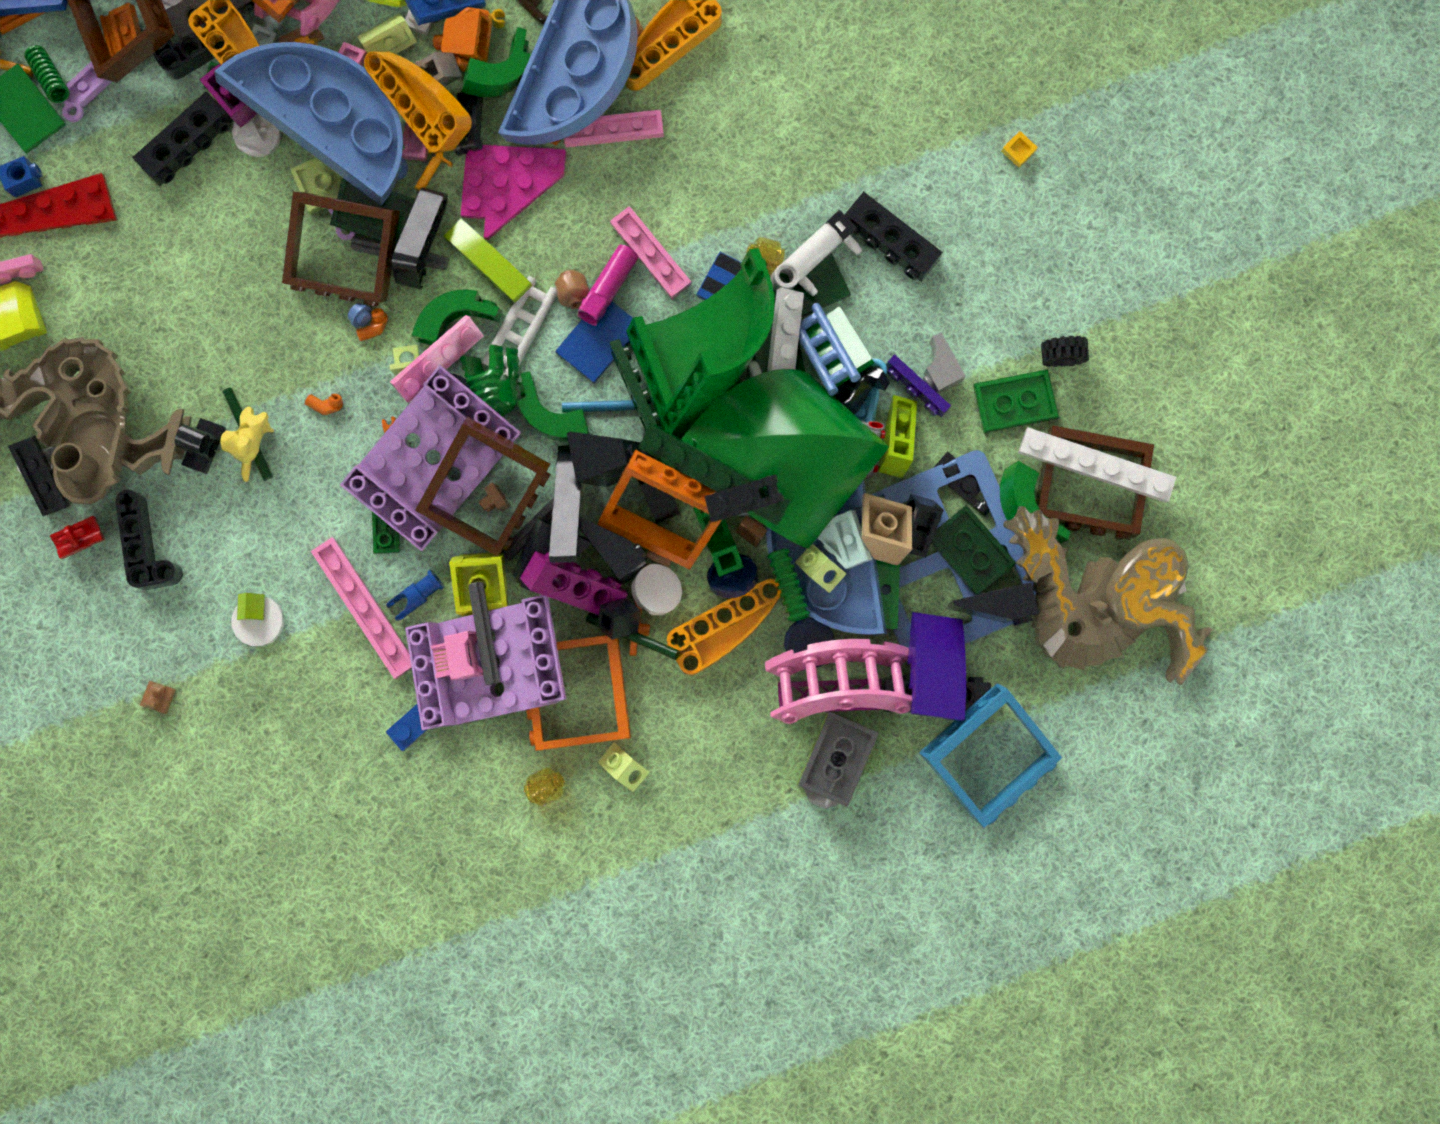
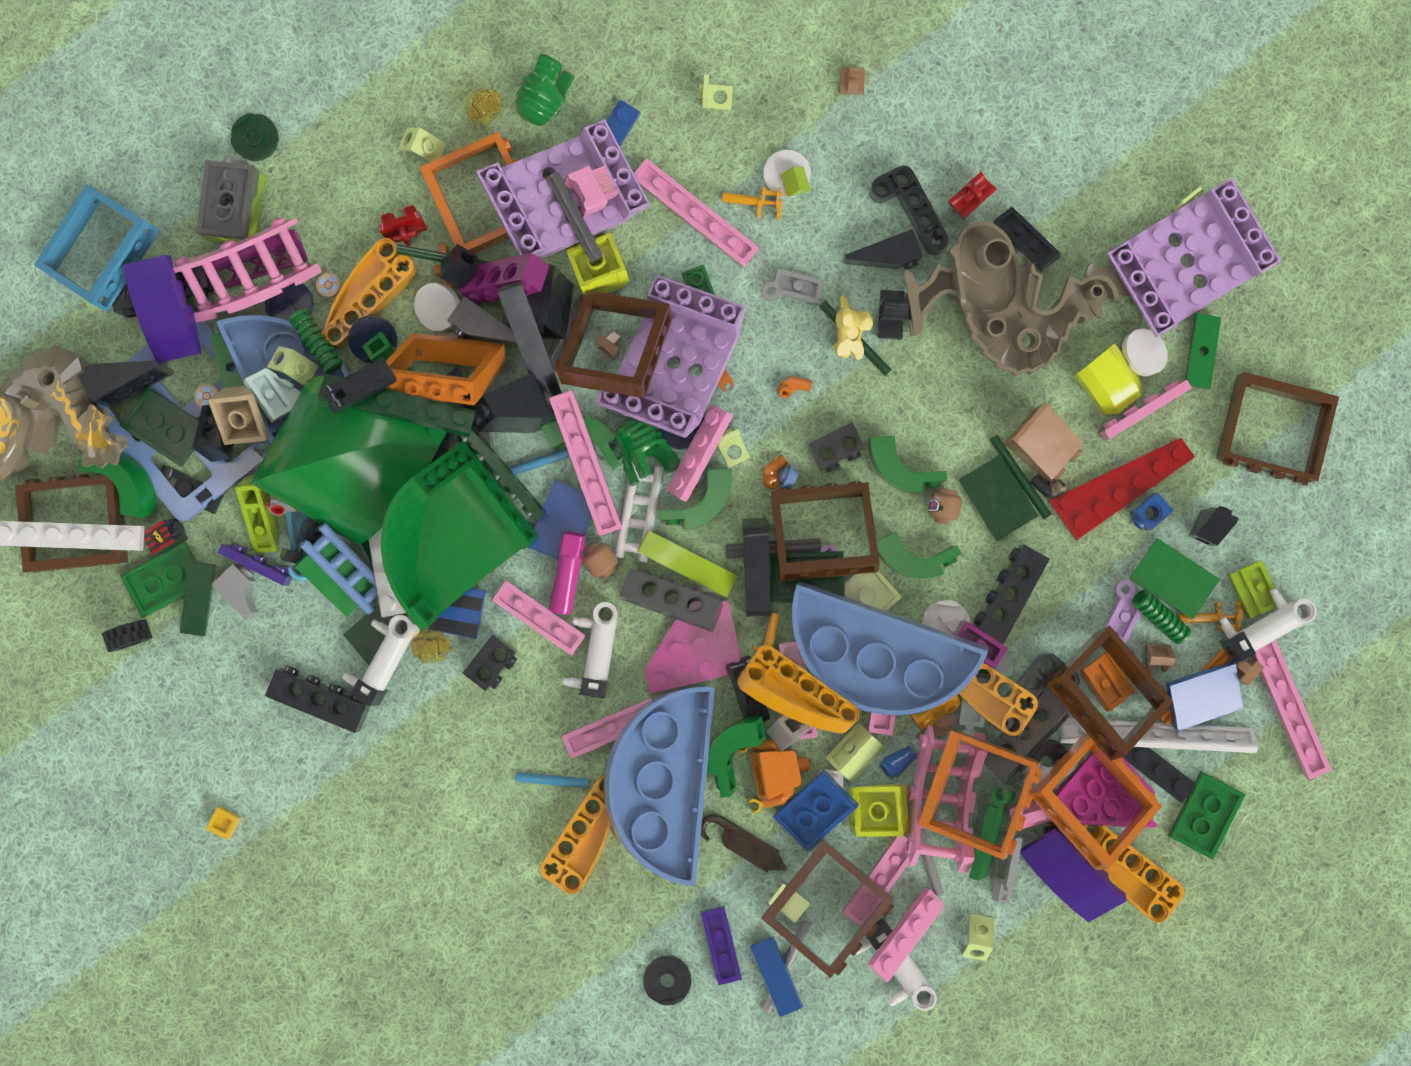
camera: 165 degrees right, 5 degrees up
(64, 41) = (1159, 655): none -> medium nougat tile
(97, 272) = (1045, 442): none -> medium nougat slope
(110, 230) = (1049, 489): none -> arm
(134, 250) = (1020, 477): none -> dark green bar
(163, 236) = (998, 497): none -> dark green tile
(174, 505) = (890, 253): none -> black slope
(216, 241) = (944, 505): none -> medium nougat head
(258, 299) = (886, 463): none -> green arch
(262, 189) = (902, 562): none -> green arch
(288, 501) = (794, 286): none -> light grey hinge
(299, 602) = (755, 200): none -> light orange piece
(302, 335) = (834, 442): none -> black brick
(309, 730) = (707, 91): none -> yellowish green bracket
(348, 17) = (897, 762): none -> blue cone
(417, 594) = (650, 242): blue piece -> none
(478, 779) = (539, 94): none -> green hair
(484, 198) = (704, 618): none -> dark grey brick
(553, 383) = (585, 462): none -> bright pink plate
(591, 221) = (599, 653): none -> white piece
(667, 681) = (404, 227): none -> red hips
(686, 98) = (552, 780): none -> dark azure bar
(715, 227) = (486, 658): none -> black brick
(763, 648) = (329, 285): none -> tan tile
(788, 827) = (261, 142): none -> dark green tile
(919, 568) = (203, 393): none -> tan tile
(985, 370) = (197, 598): none -> dark green tile
(1000, 440) = (165, 536): none -> black brick

